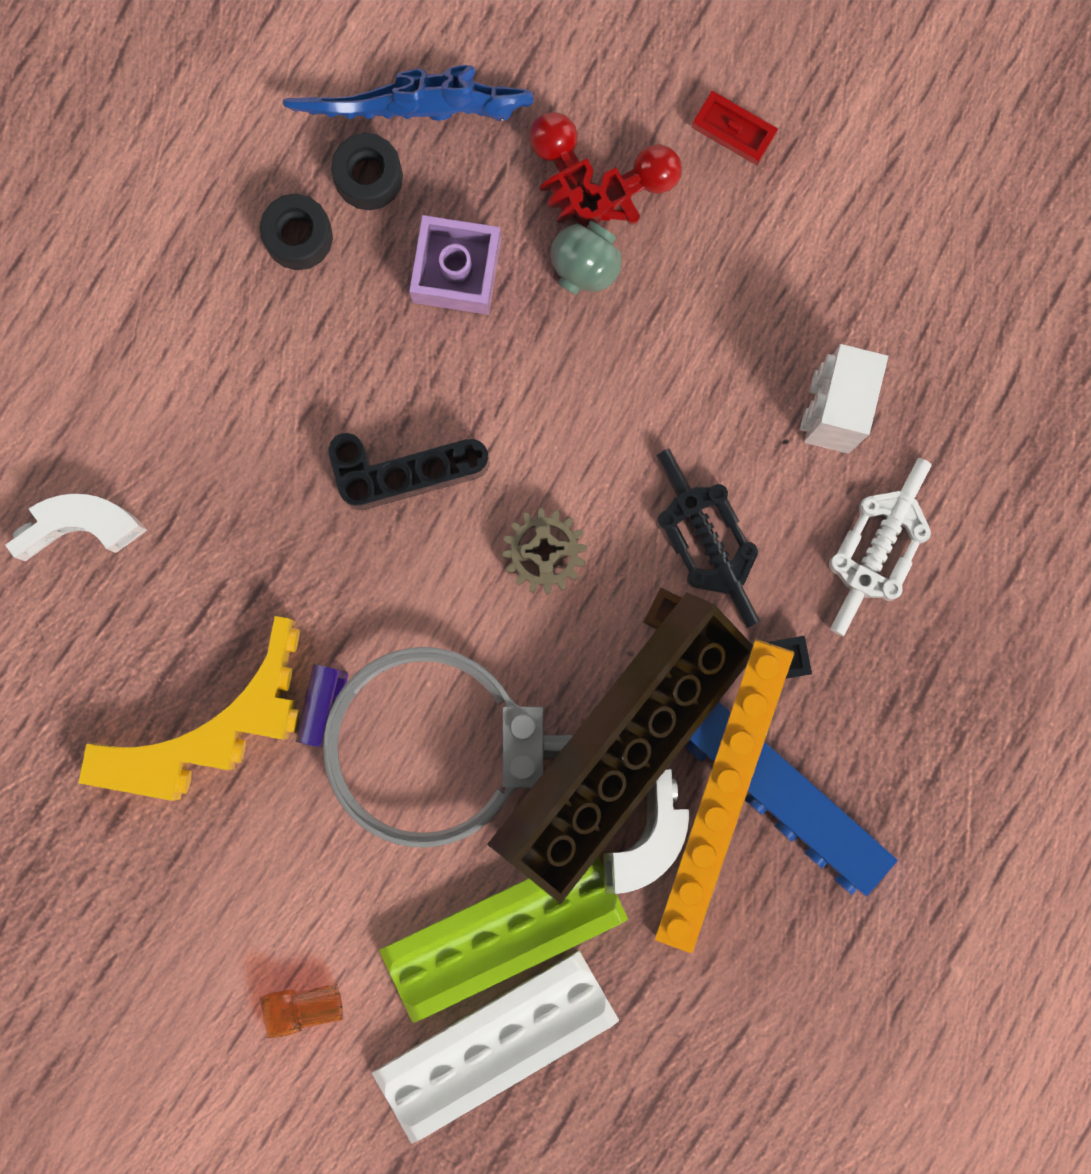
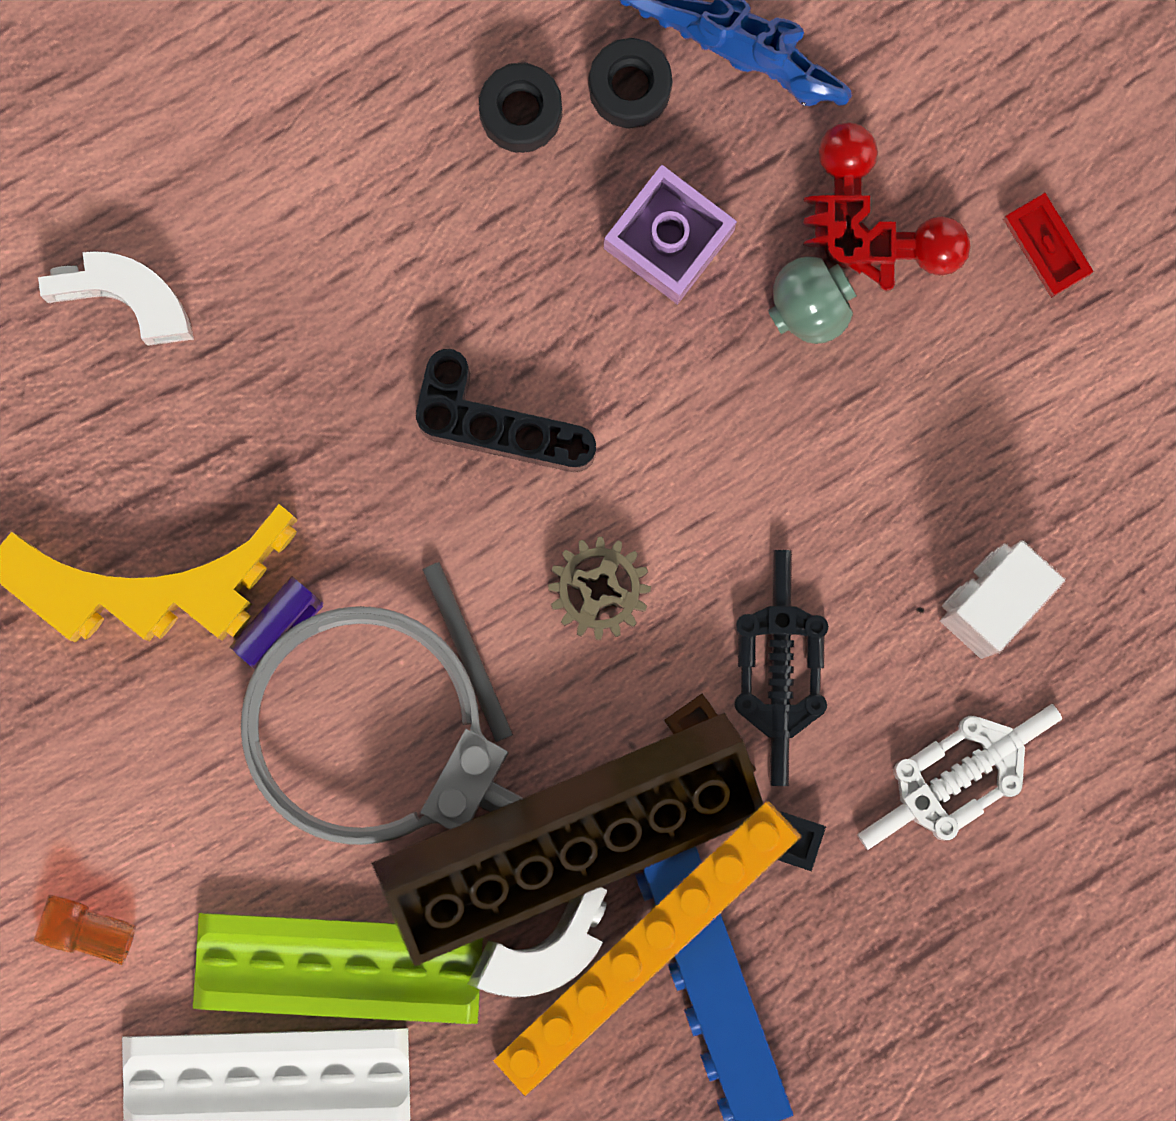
camera: 25 degrees right, 0 degrees up
(472, 650) = (467, 652): none -> dark grey bar

